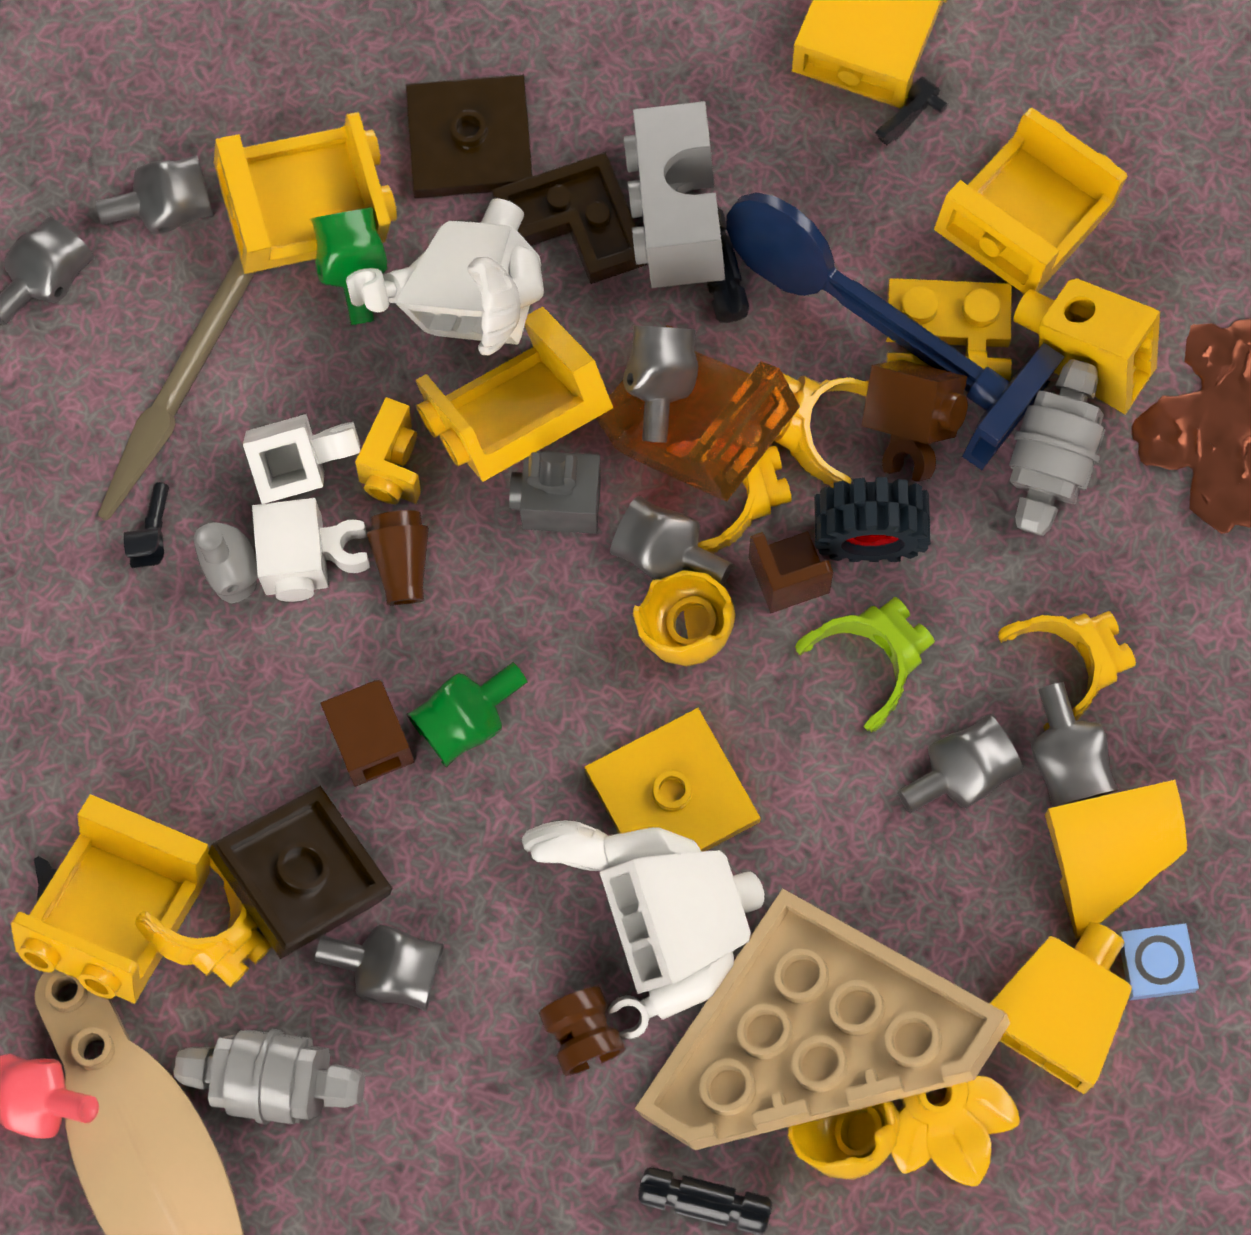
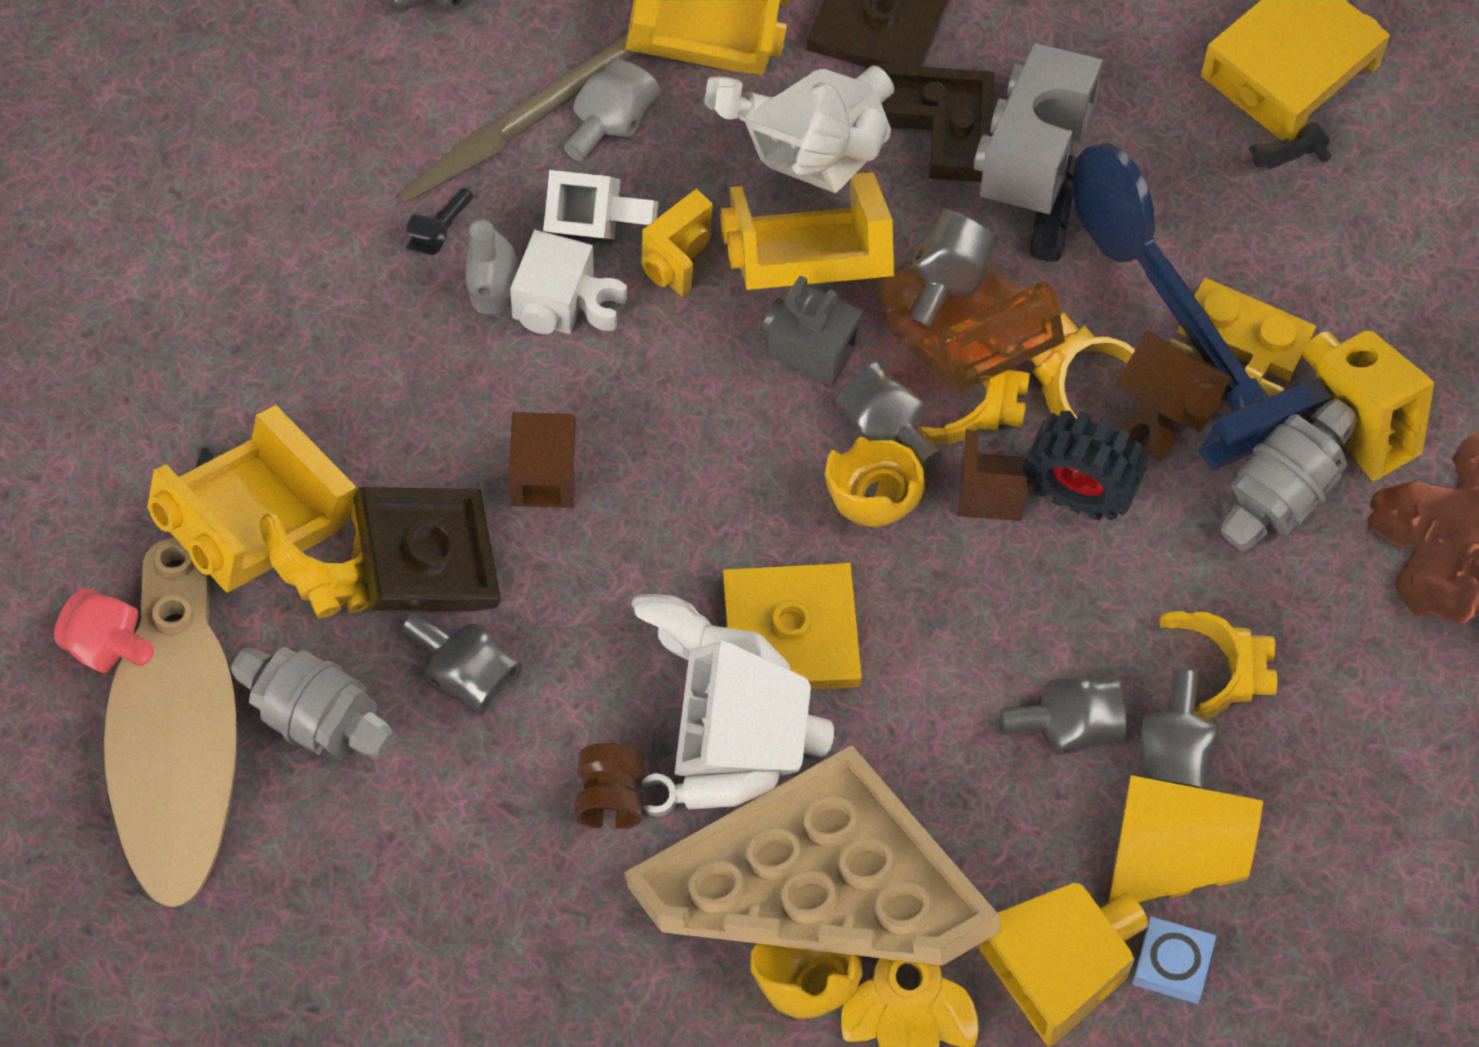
camera: 20 degrees right, 10 degrees down
(259, 338) = (611, 105): none -> light grey piece
(346, 245) = (723, 51): green piece -> none
(400, 554) = (646, 327): reddish brown cone -> none
(464, 712) = (636, 481): green piece -> none
(705, 1200) = (650, 982): black axle -> none
(892, 633) = (1058, 571): lime helmet -> none
(1031, 203) = (1367, 264): yellow panel -> none

